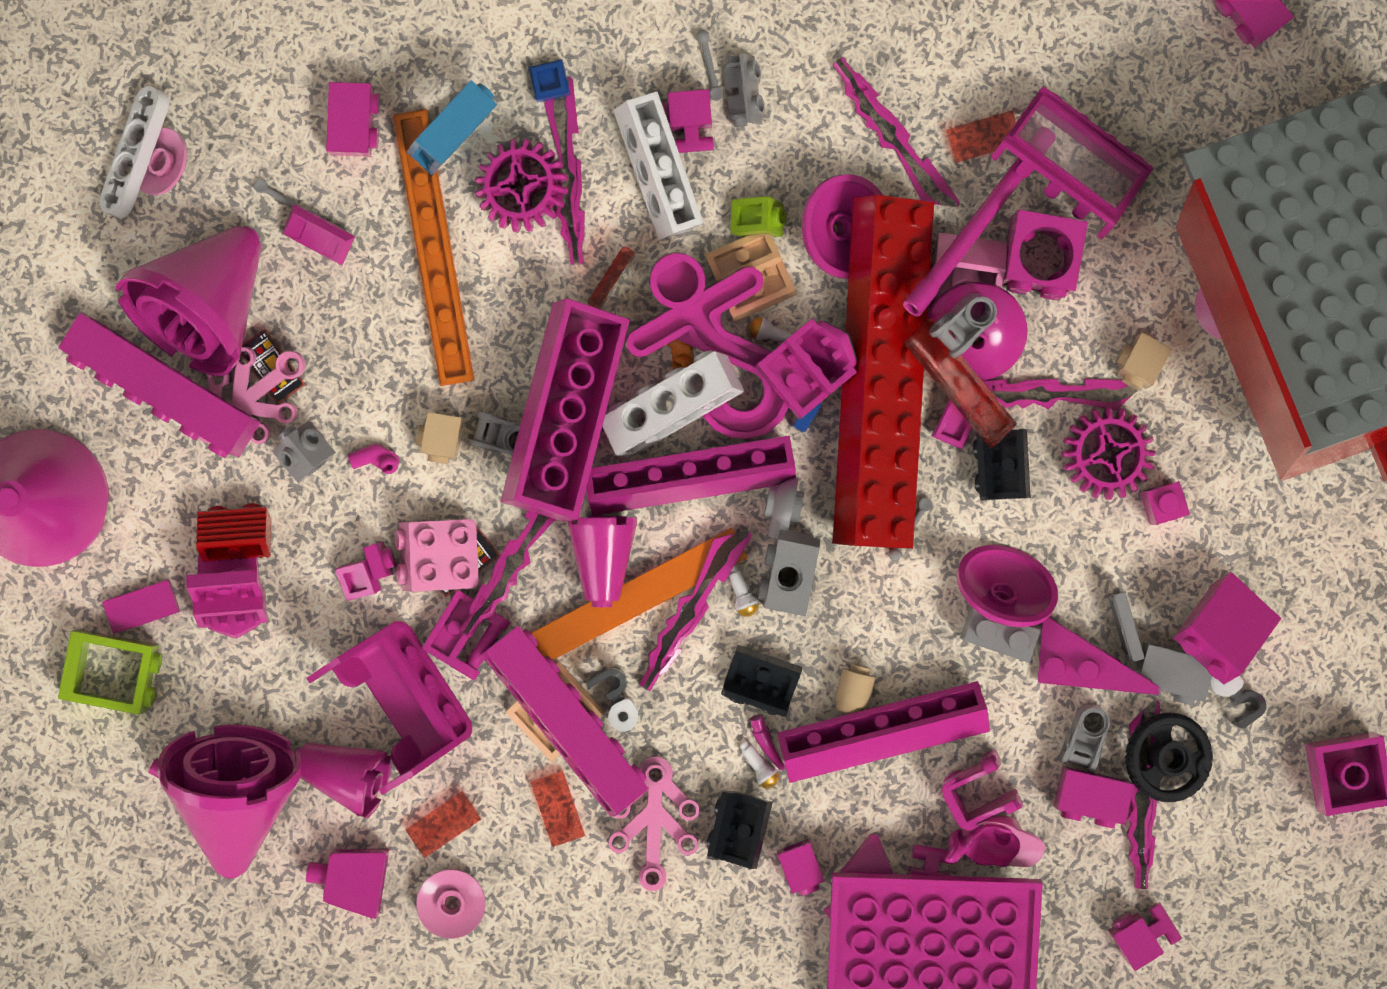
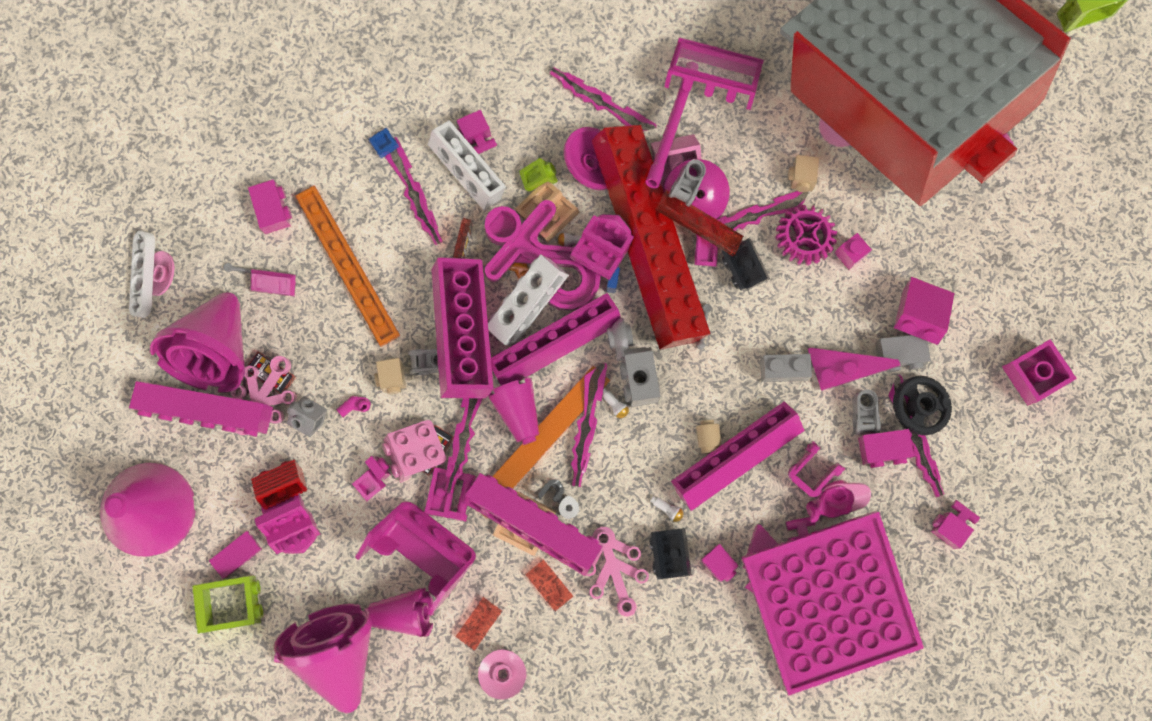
camera: 15 degrees left, 10 degrees down
(352, 879) = (432, 682): dark pink torso -> none
(452, 126) = (331, 185): dark azure window -> none
(537, 183) = (371, 214): dark pink gear -> none
(716, 92) = (466, 86): light grey hinge -> none
(743, 74) = (499, 98): light grey hinge -> none
(761, 681) = (648, 453): black bracket -> none
(764, 739) = (662, 489): dark pink helmet -> none
(979, 137) = (653, 83): clear red tile -> none
(1007, 586) = (778, 335): dark pink dish -> none
(1069, 238) = (723, 113): dark pink brick -> none
(1126, 626) = (861, 334): light grey tile -> none
(1233, 690) = (943, 349): dark grey leg -> none

